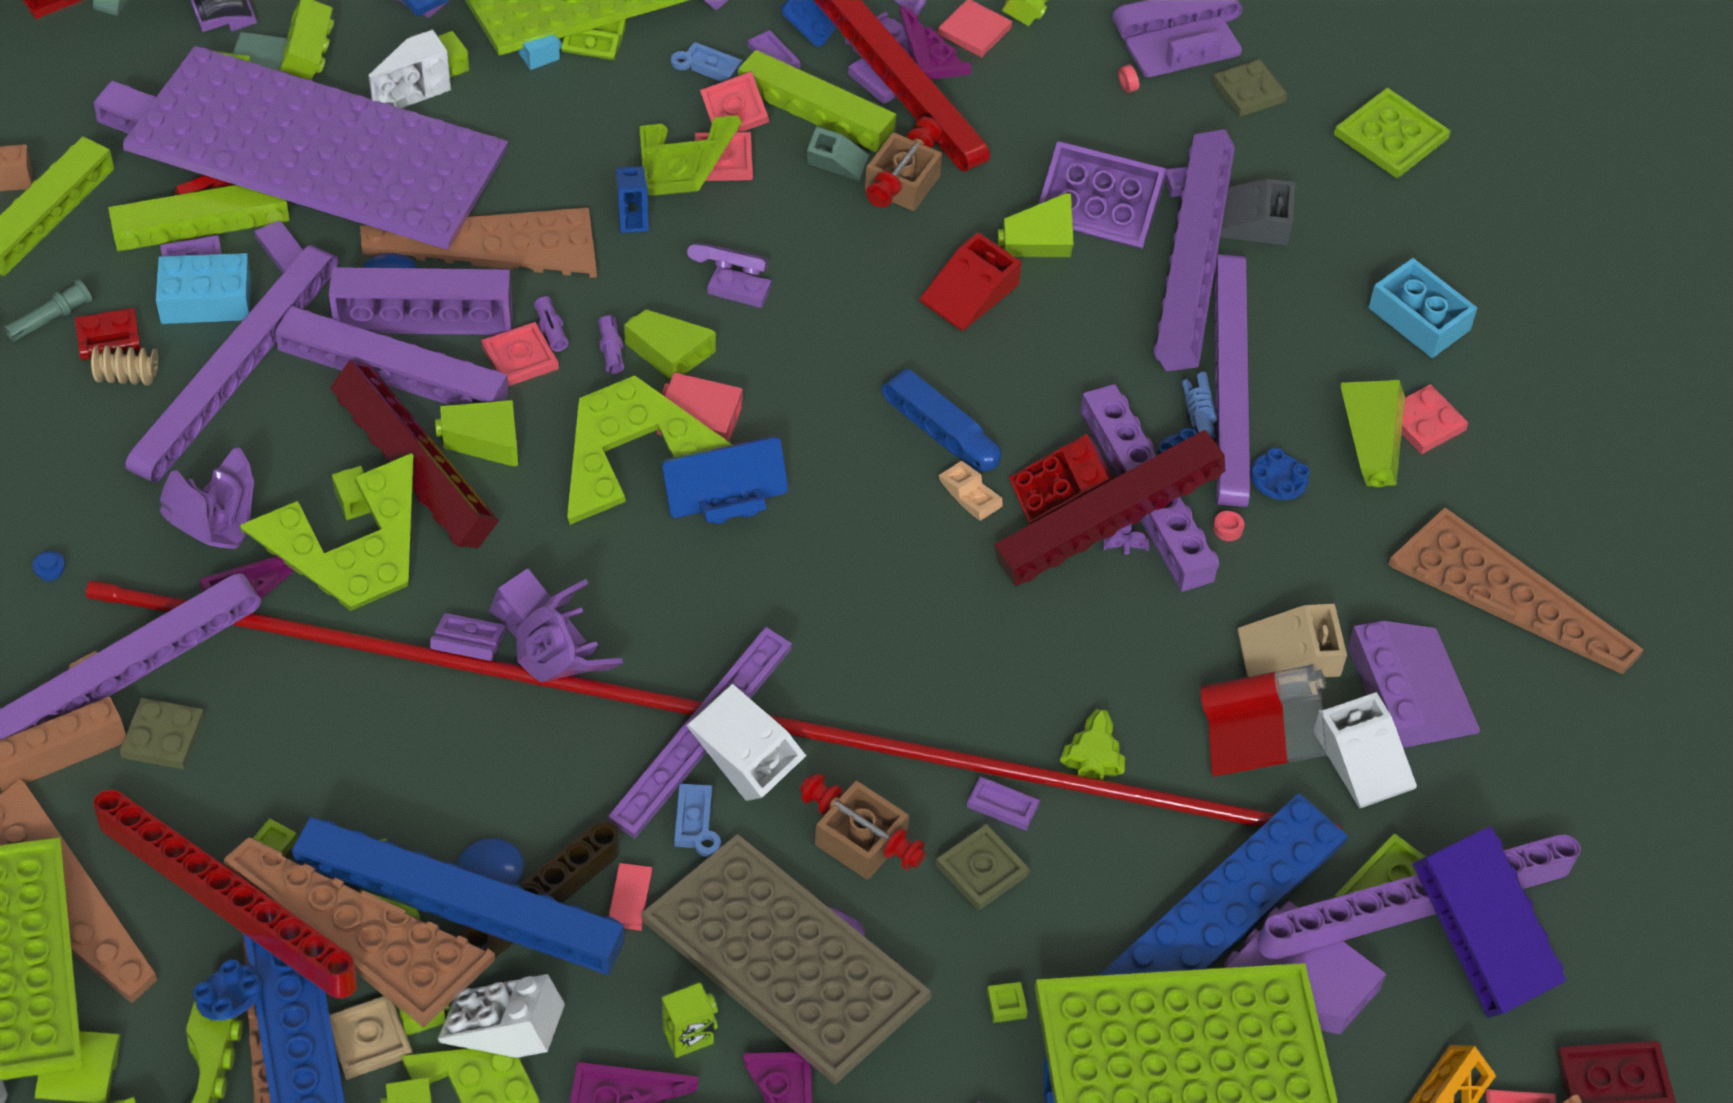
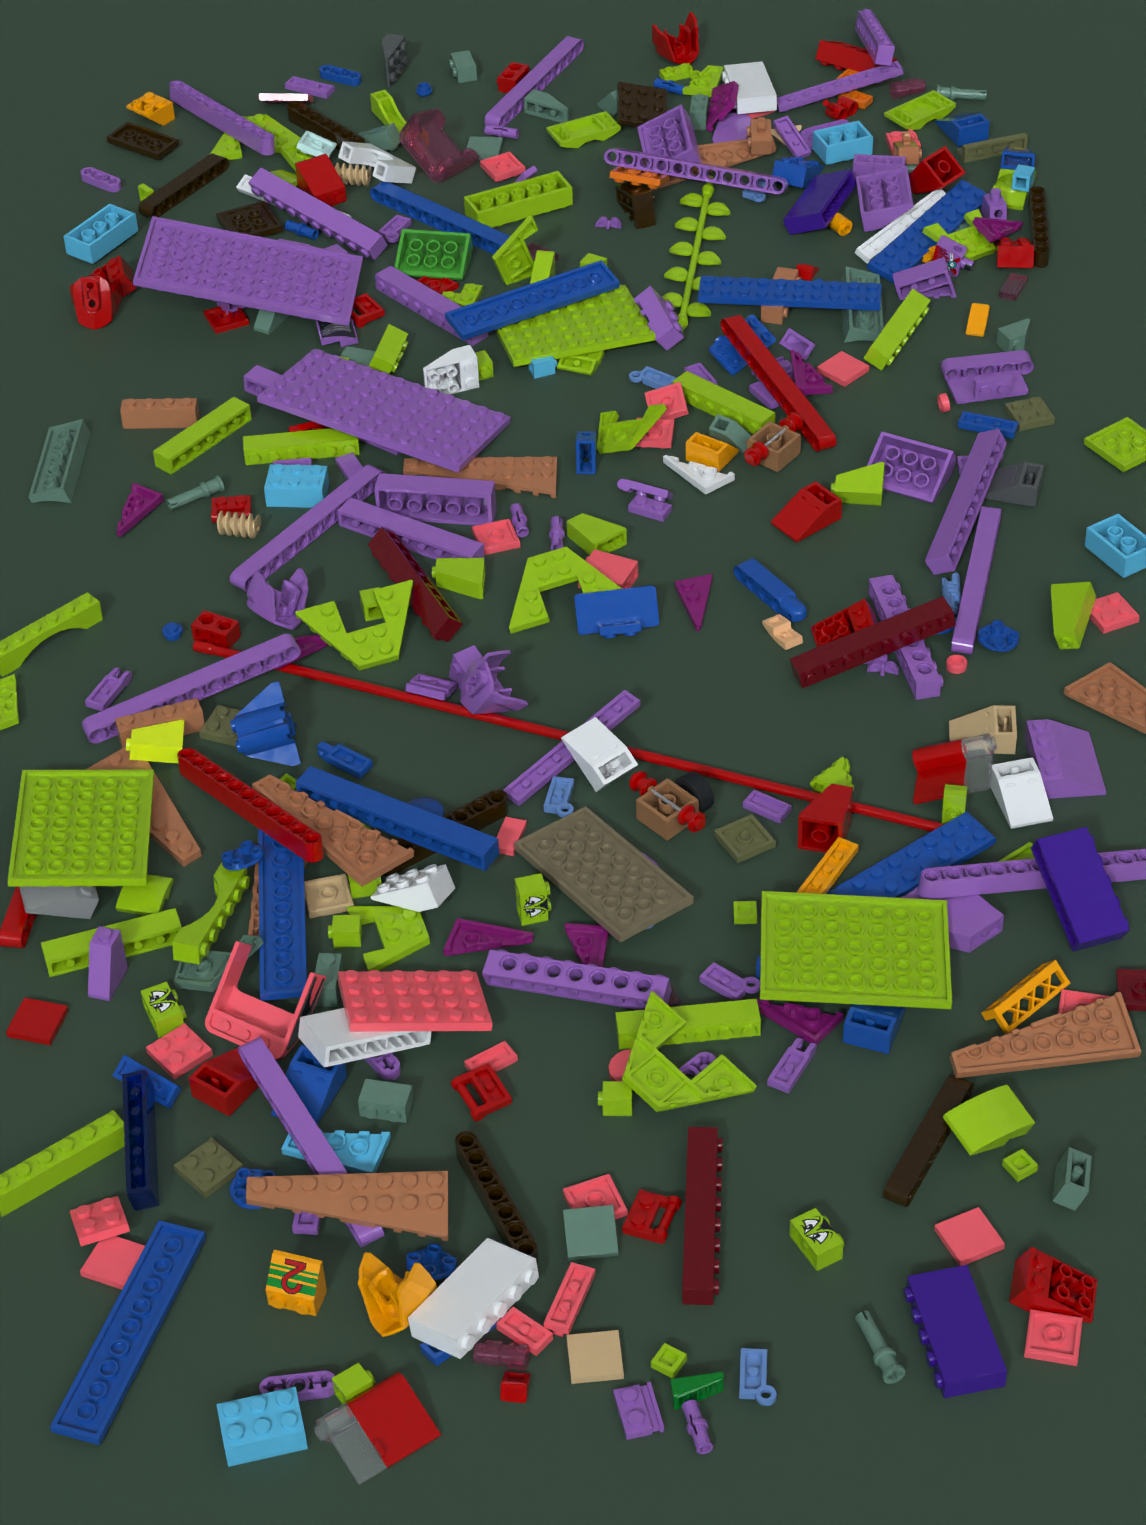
camera: 15 degrees right, 10 degrees down
(57, 781) = (156, 742): none -> neon yellow slope
(118, 560) = (216, 629): none -> red brick
(228, 745) = (266, 728): none -> blue brick
(355, 781) = (345, 759): none -> blue hinge
(805, 227) = (699, 475): none -> white wing
(811, 186) = (709, 451): none -> light orange slope
(831, 437) = (694, 597): none -> magenta wing
(902, 792) = (697, 787): none -> black tyre
(1103, 830) = (825, 819): none -> red slope
(1118, 920) = (830, 867): none -> light orange fence
(1197, 111) = (982, 423): none -> blue plate
(1277, 781) = (953, 802): none -> lime brick

